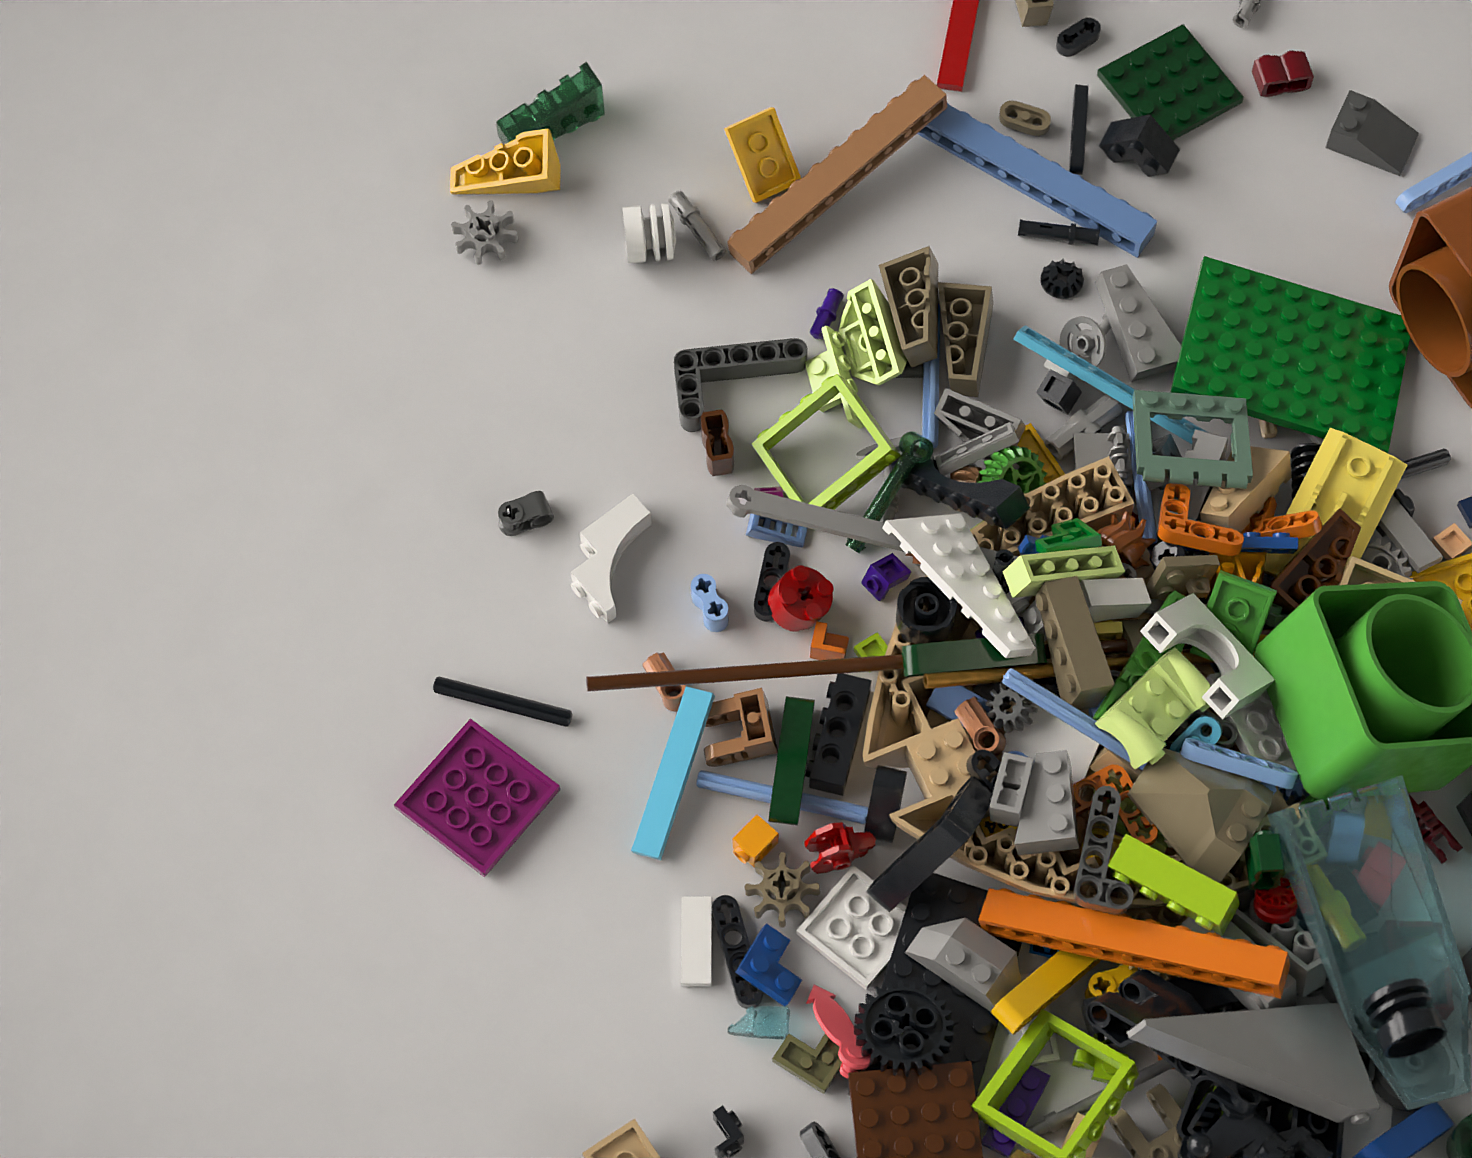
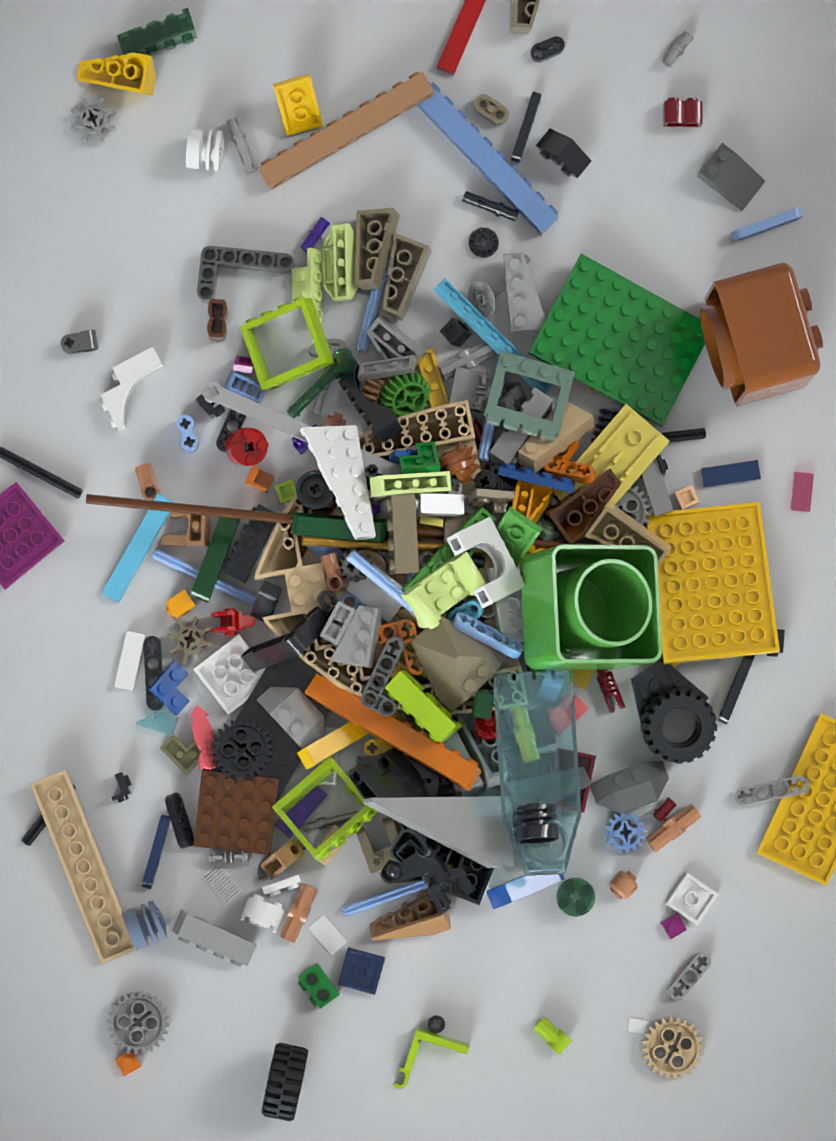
camera: 10 degrees right, 20 degrees up
(730, 561) = (208, 407): none -> black bracket
(1171, 82) = (601, 103): dark green plate -> none
(1181, 531) = (498, 460): orange beam -> none

